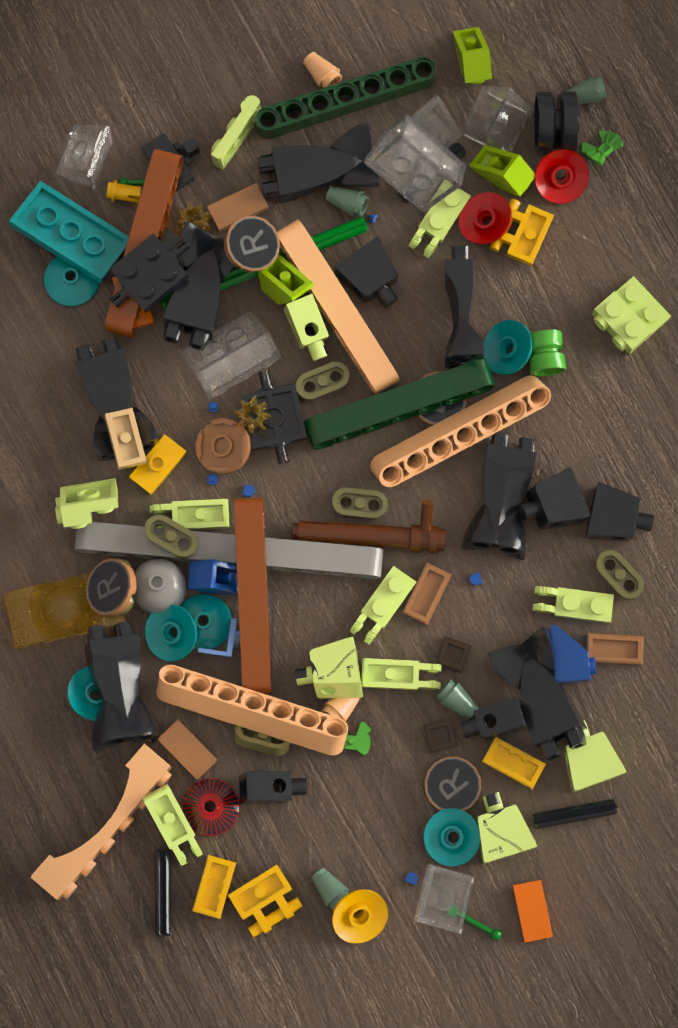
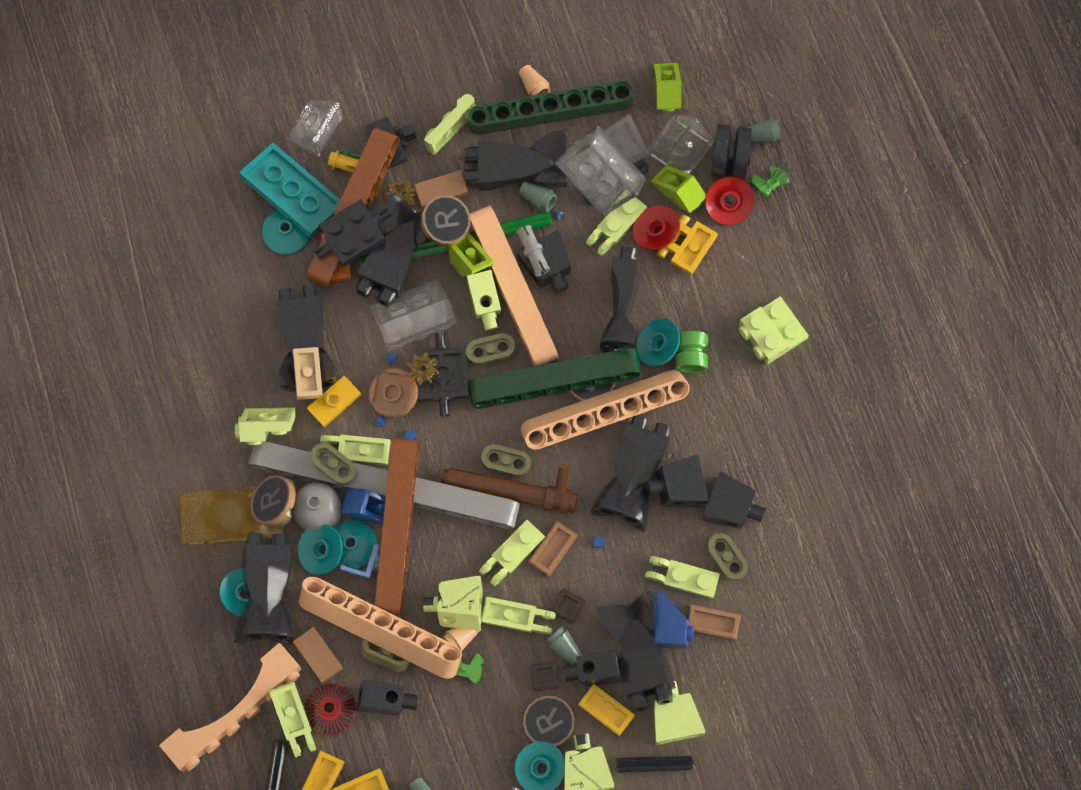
camera: 15 degrees right, 5 degrees down
(354, 264) = (533, 250): none -> light grey pin

